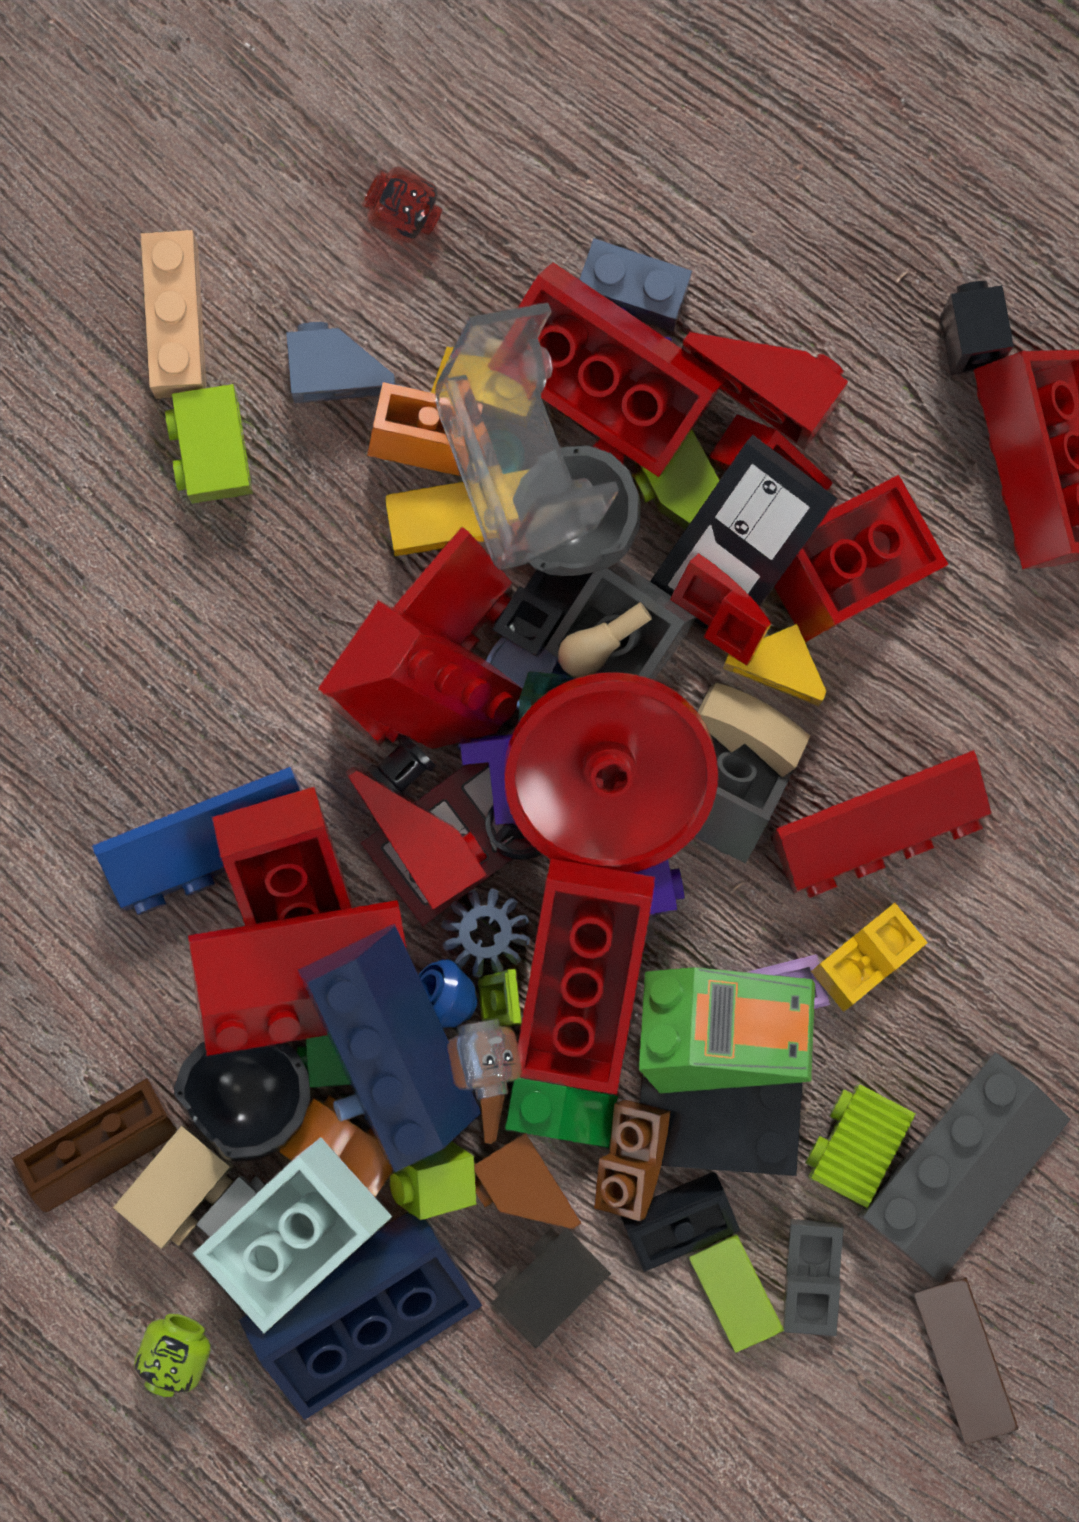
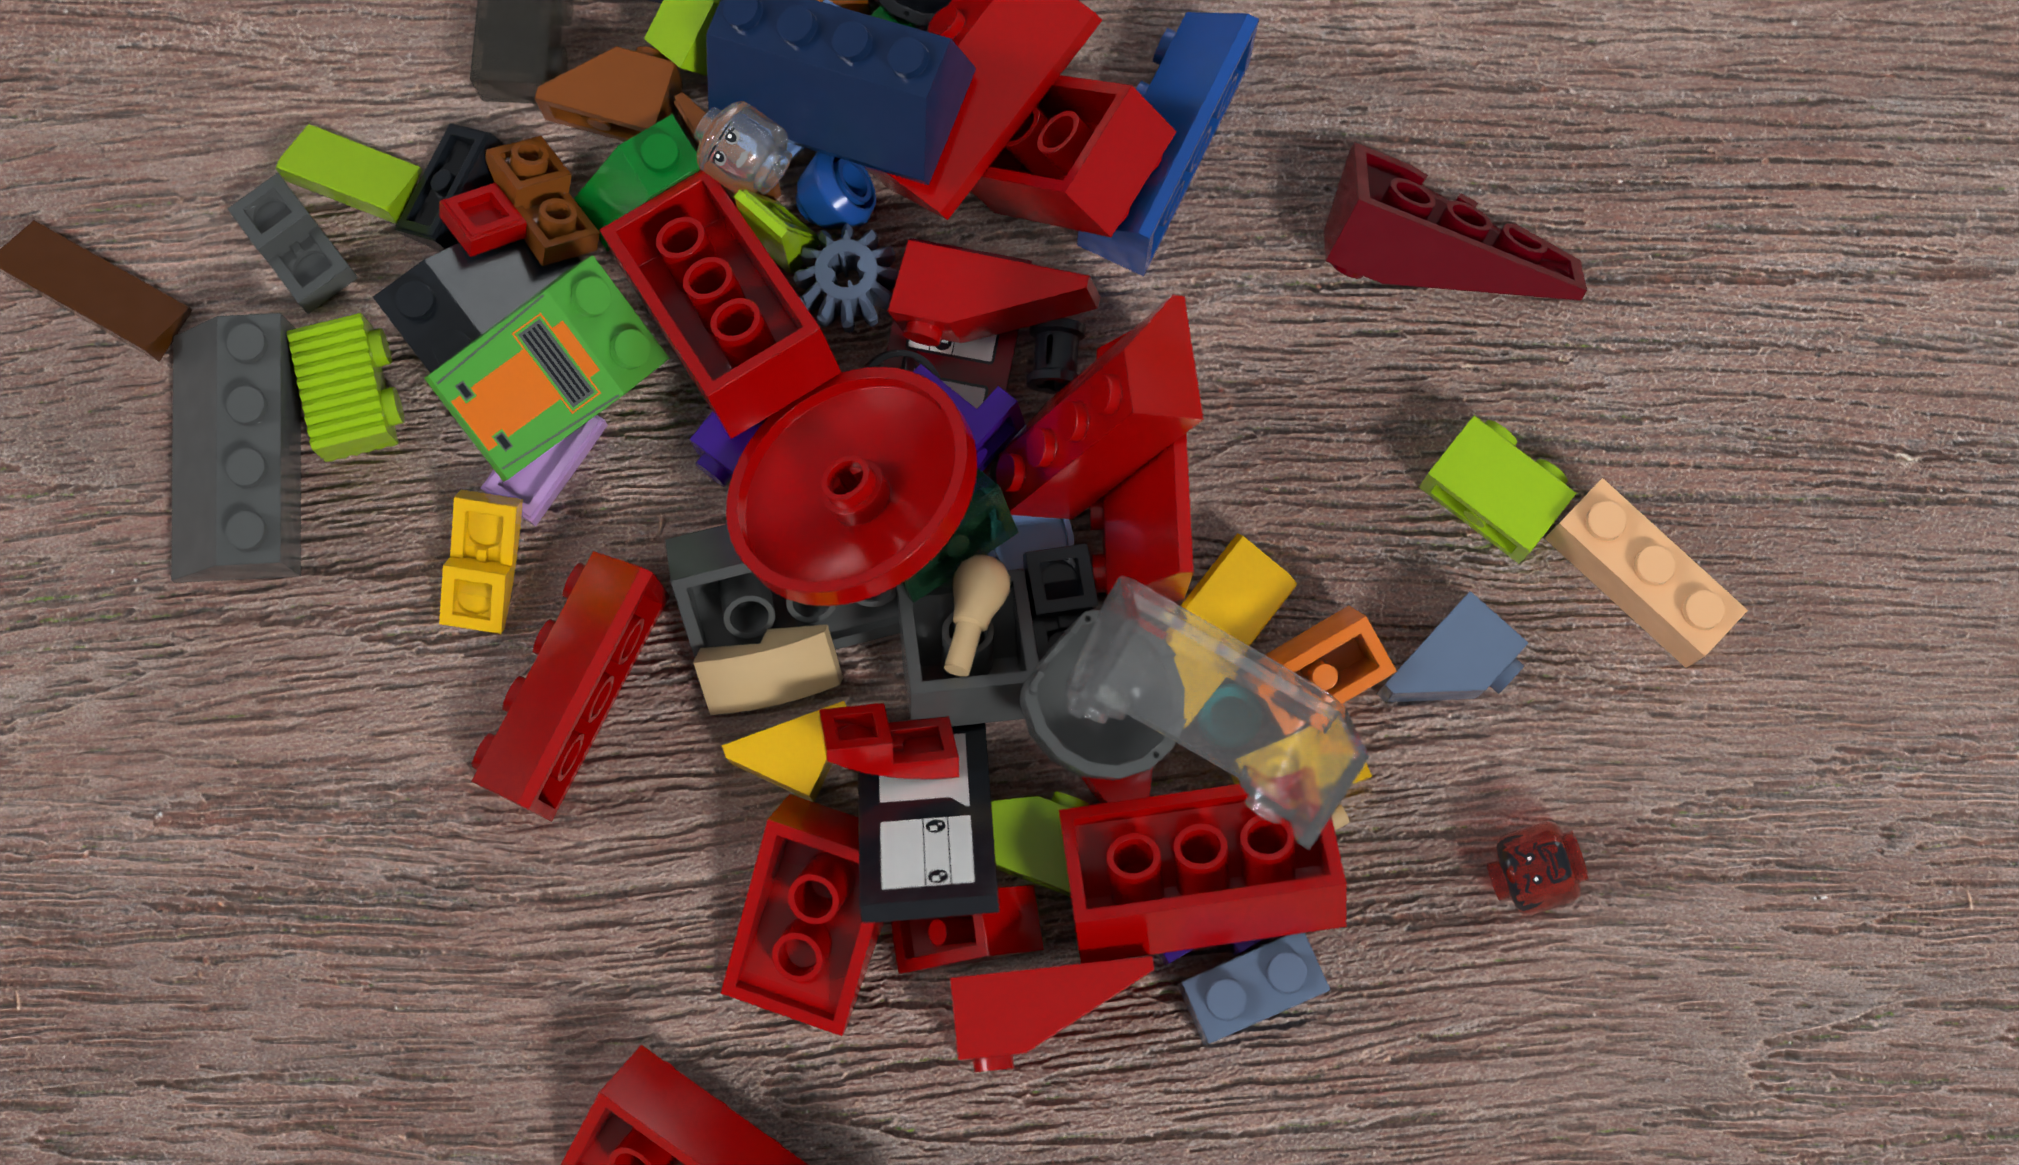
camera: 140 degrees right, 5 degrees down
(108, 642) = (1410, 236): none -> dark red wedge
(682, 1173) = (482, 219): none -> red tile

